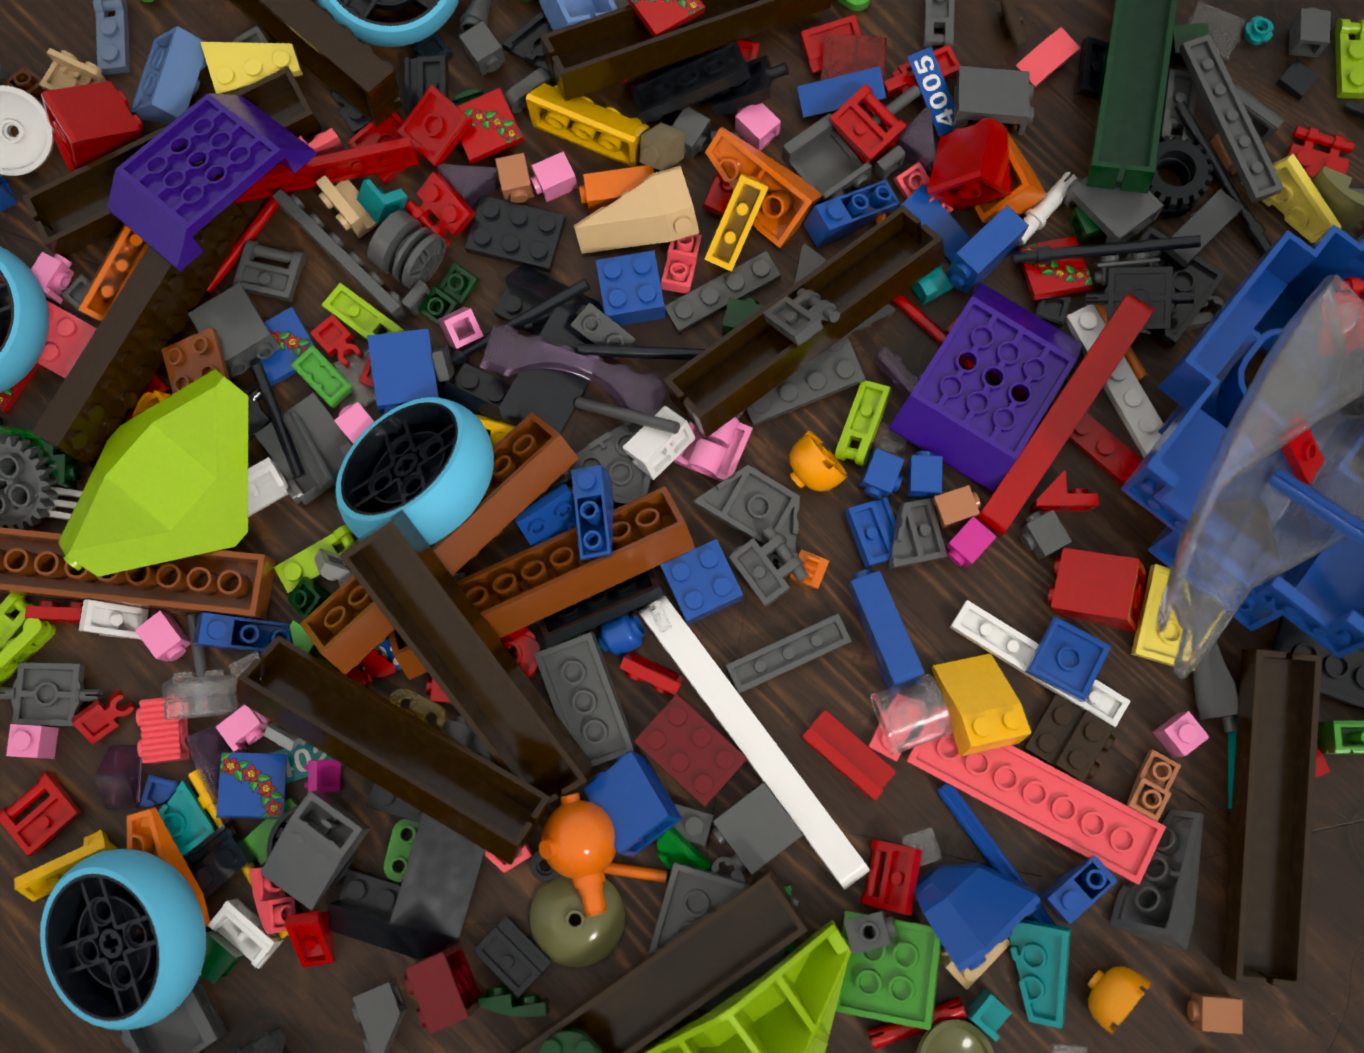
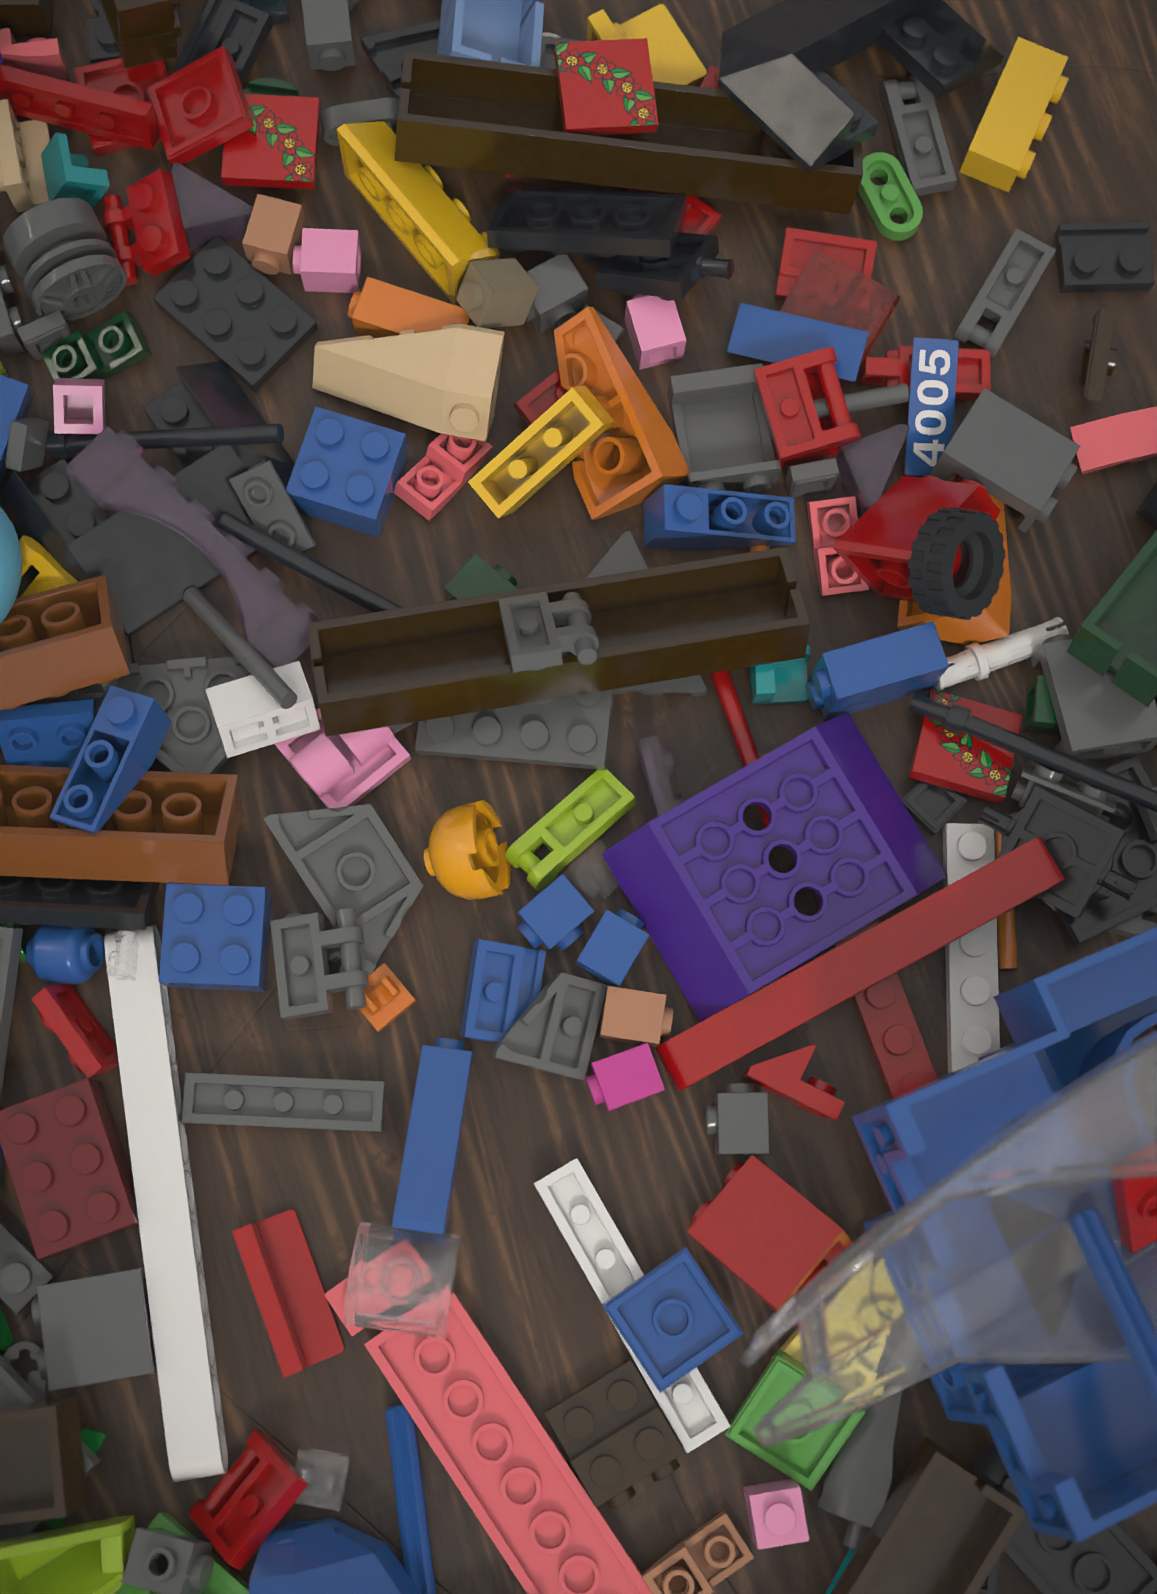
camera: 15 degrees right, 0 degrees up
(714, 295) = (454, 540): dark grey plate -> none
(938, 220) = (830, 593): blue sticker -> none
(980, 705) = (509, 1317): yellow slope -> none
(1004, 165) = (934, 558): none -> black tyre
(1156, 685) = (801, 1457): none -> bright green tile

